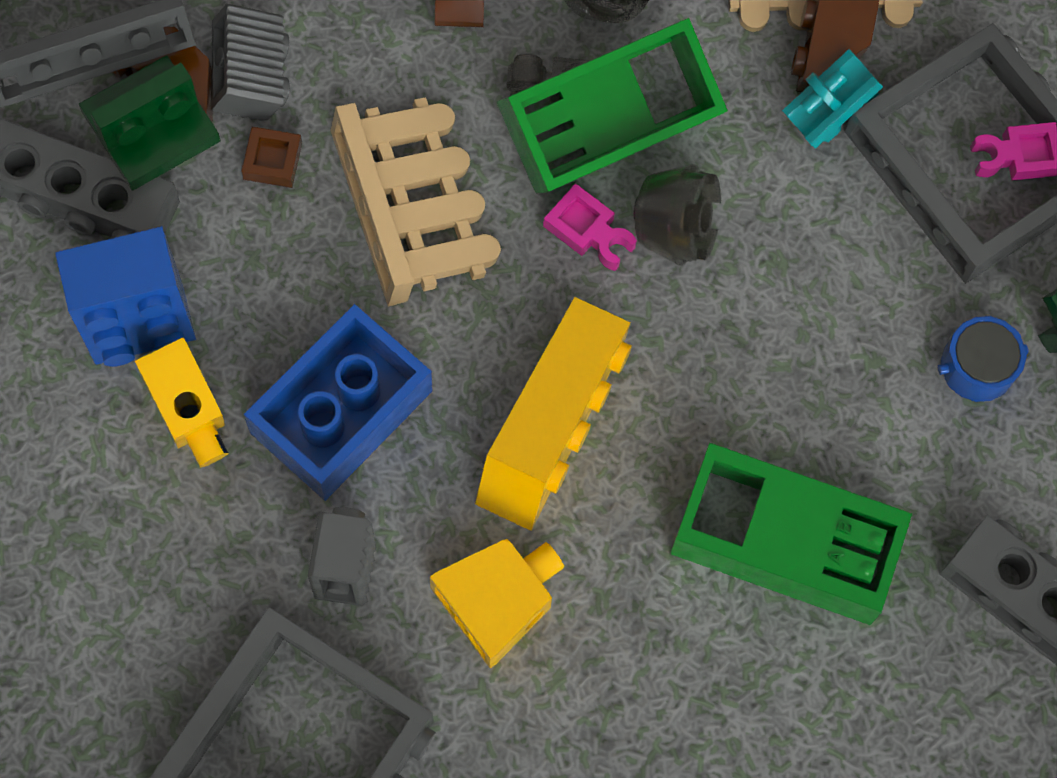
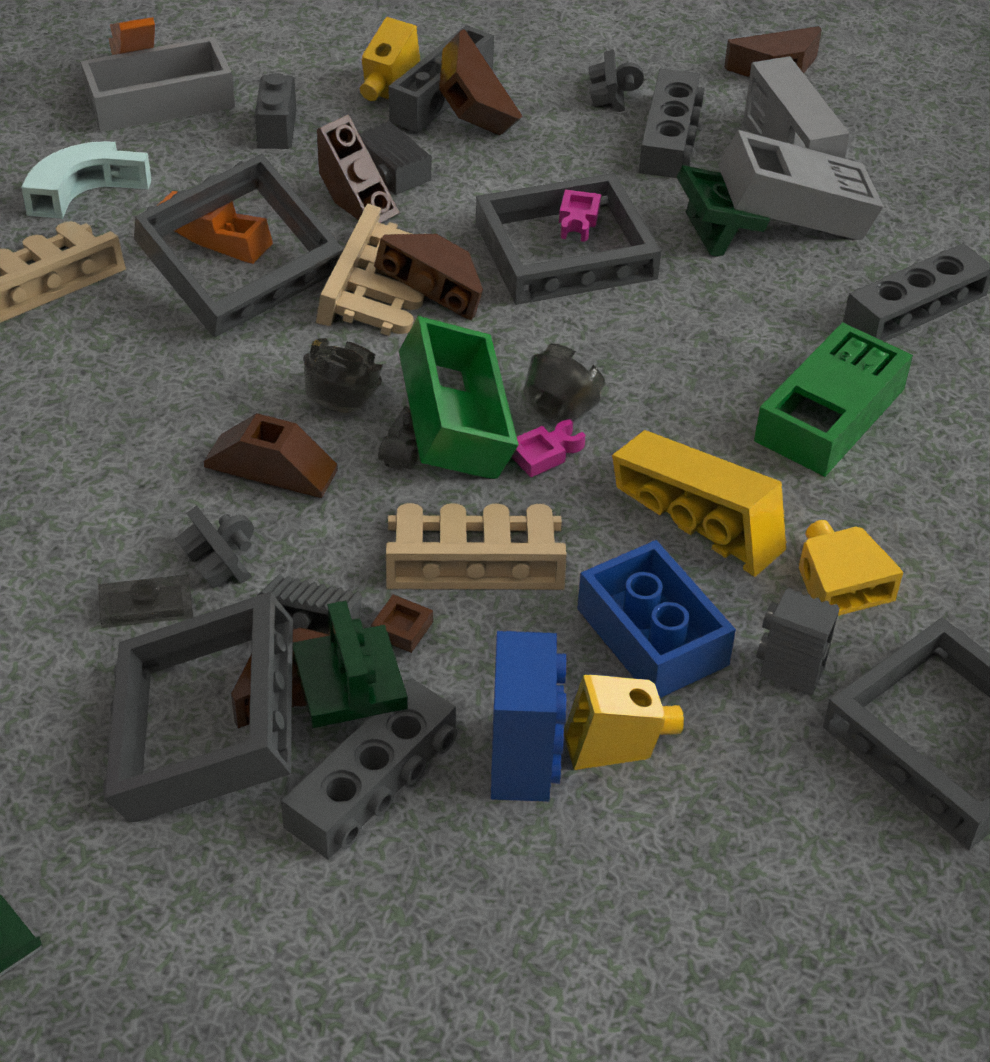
camera: 70 degrees left, 25 degrees down
(832, 98) = (501, 284): teal hips -> none
(983, 358) = (724, 277): piece -> none

